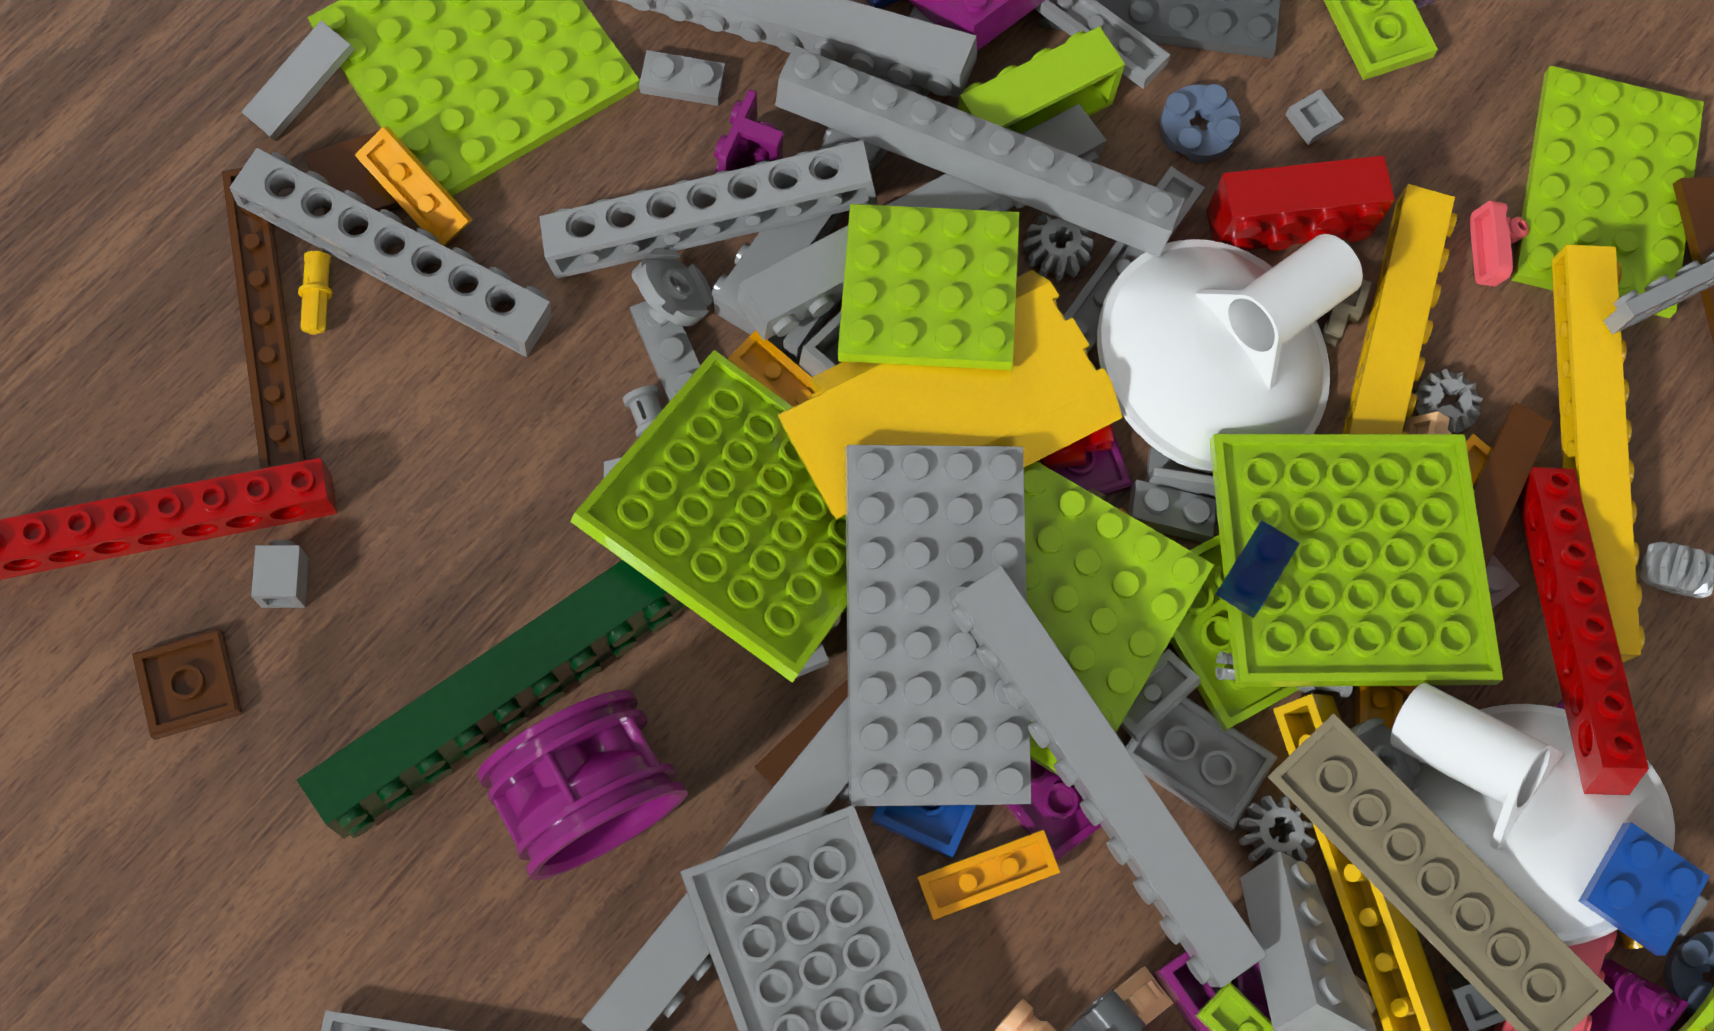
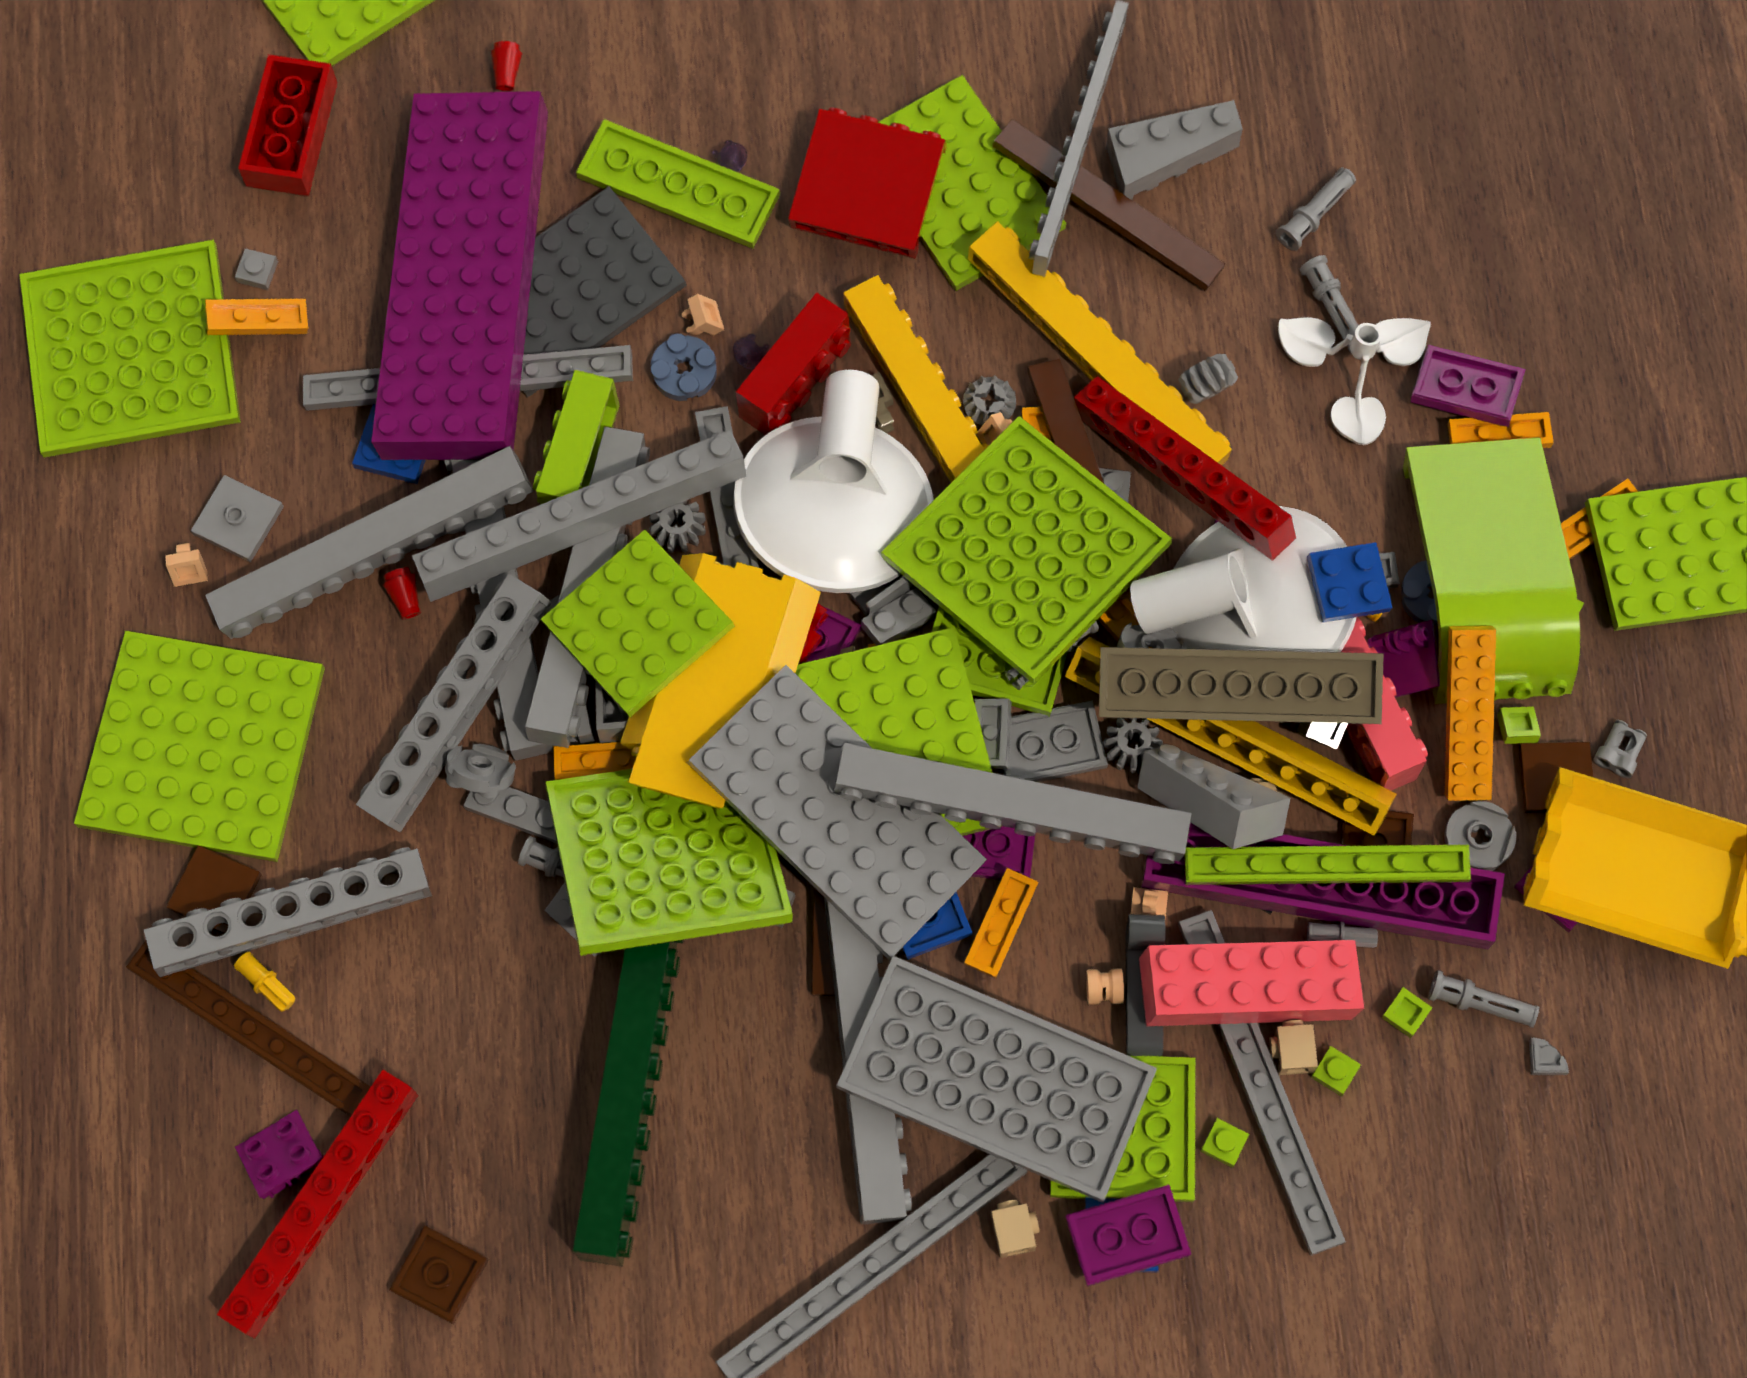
camera: 35 degrees left, 0 degrees up
(168, 447) = (279, 1155): none -> magenta hinge
(280, 575) = (427, 1159): light grey brick -> none
(298, 80) = (113, 867): light grey tile -> none
(413, 186) = (258, 861): light orange plate -> none
(580, 784) = (733, 1094): magenta wheel -> none
(682, 78) = (345, 637): light grey plate -> none
(748, 139) = (435, 640): magenta bracket -> none
(766, 81) = (403, 592): none -> red cone
(1257, 569) = (981, 606): clear blue plate -> none
(1262, 94) = (705, 316): none -> light nougat tile
(1270, 155) = (748, 352): none -> plate
(1314, 117) = (747, 300): light grey plate -> none
(1492, 242) = (921, 278): coral piece -> none
(1524, 110) = (866, 182): none -> red panel

